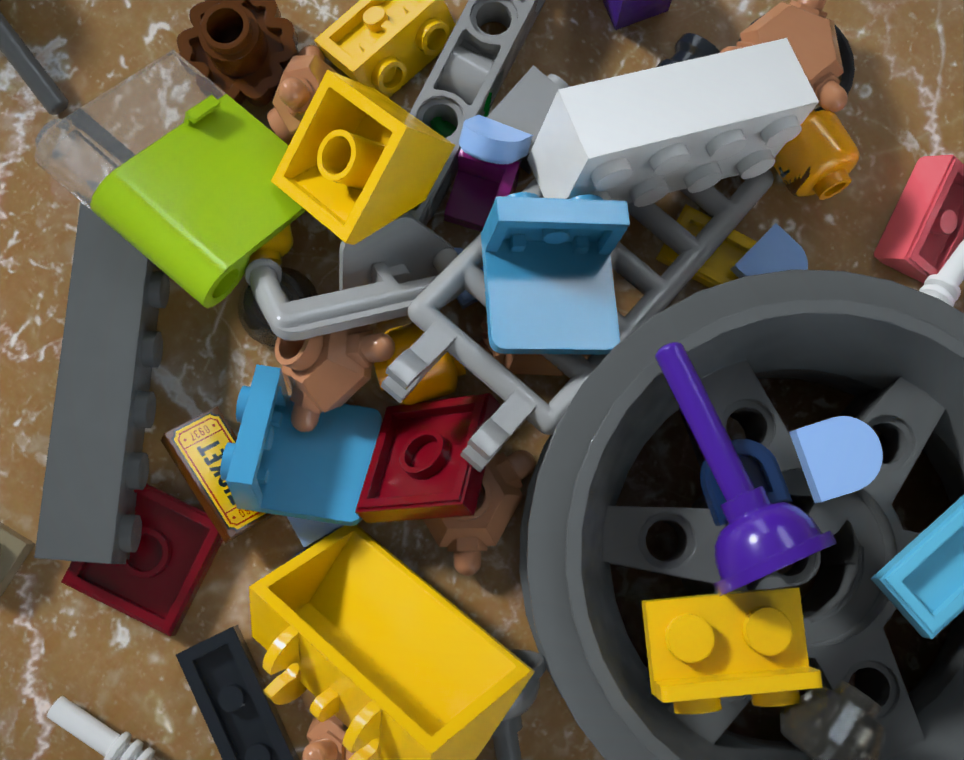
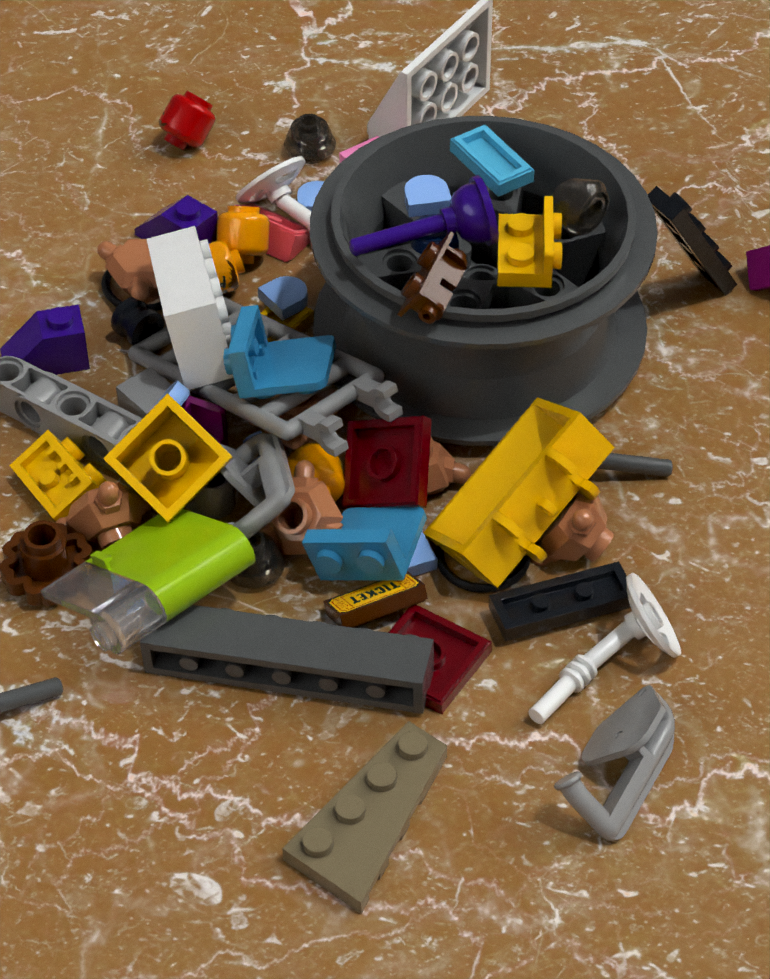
camera: 80 degrees left, 35 degrees down
(651, 497) = (423, 289): none -> reddish brown hinge
(893, 181) = (244, 230): none -> light orange head
(896, 94) = (181, 215): none -> dark purple slope

